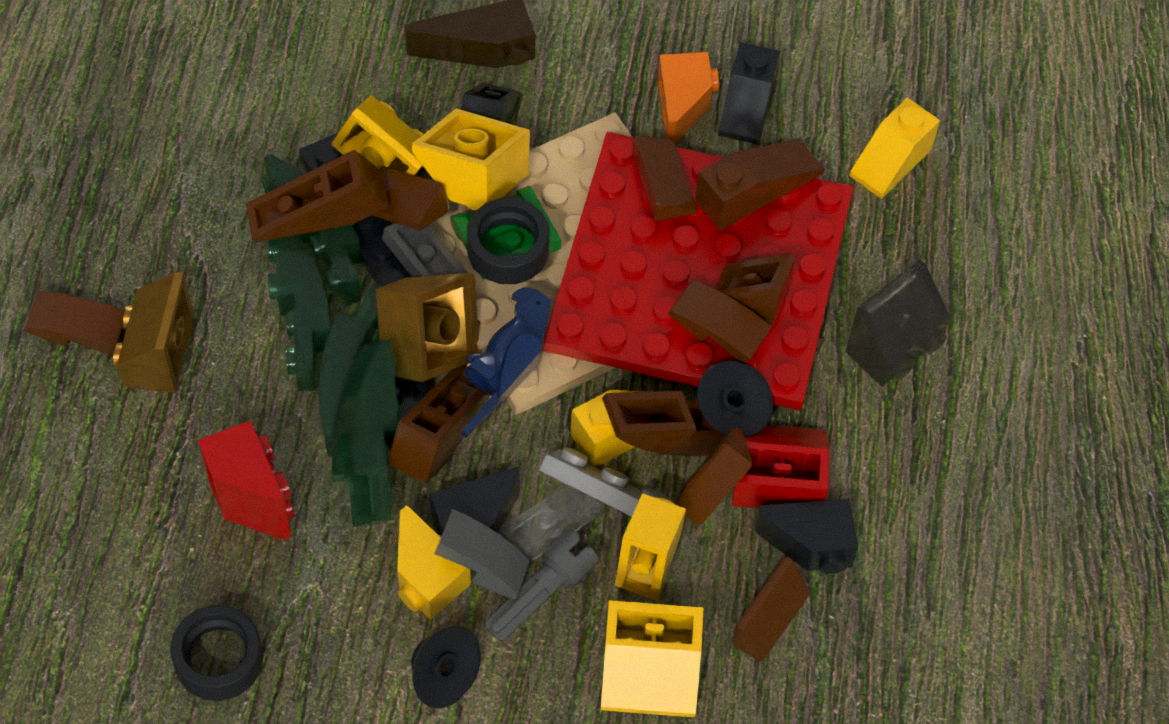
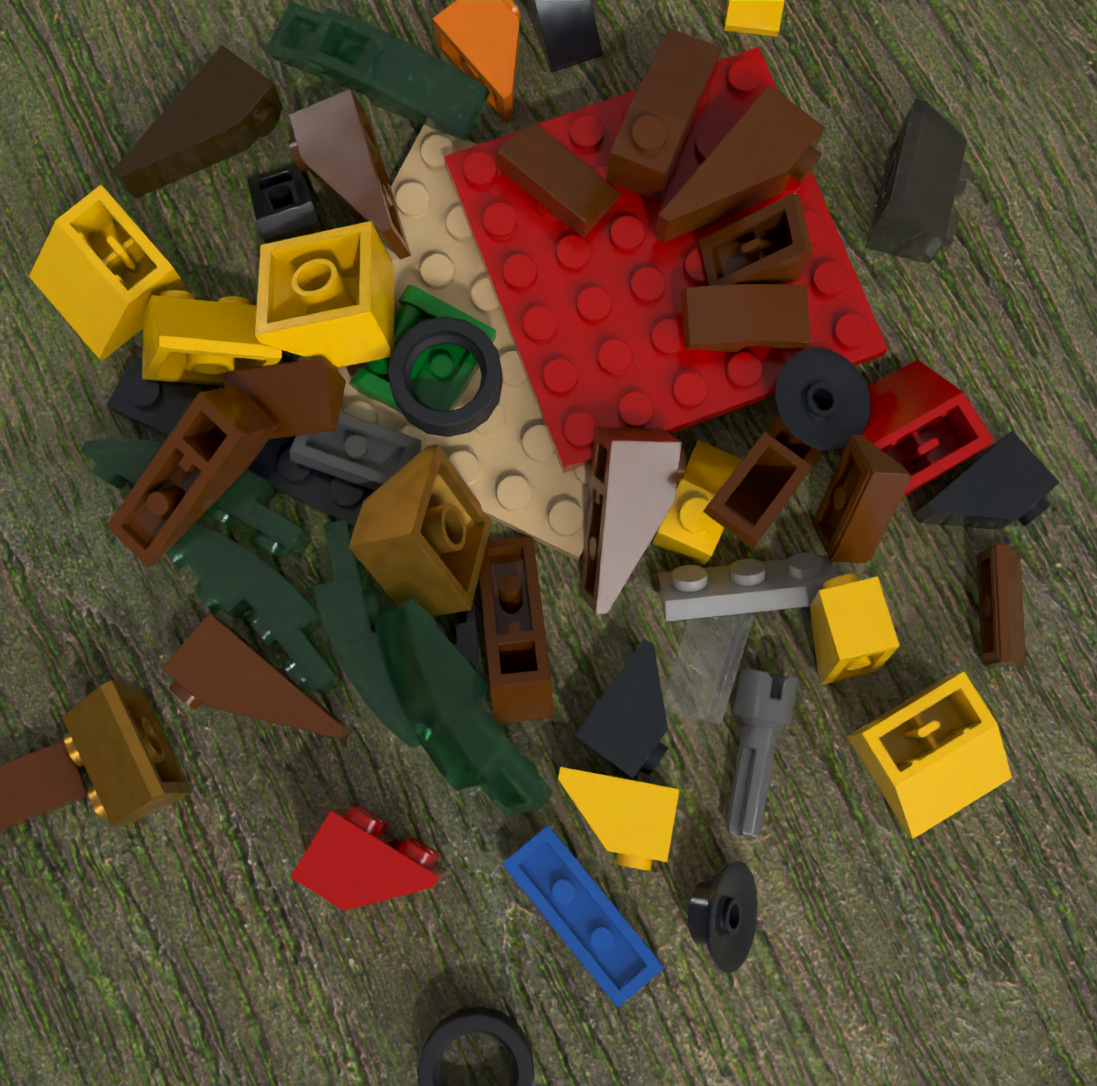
camera: 35 degrees left, 20 degrees up
(254, 346) = (234, 677): none -> reddish brown slope
(350, 71) = (101, 272): none -> yellow slope
(353, 610) = (583, 916): none -> blue plate
(479, 548) = (683, 768): dark grey slope -> none
(509, 354) = (541, 507): dark blue animal -> none
(548, 99) = (343, 155): none -> reddish brown slope
(571, 377) = (627, 501): none -> slope
(608, 65) = (380, 67): none -> clear green slope
(803, 229) = (747, 167): none -> reddish brown slope

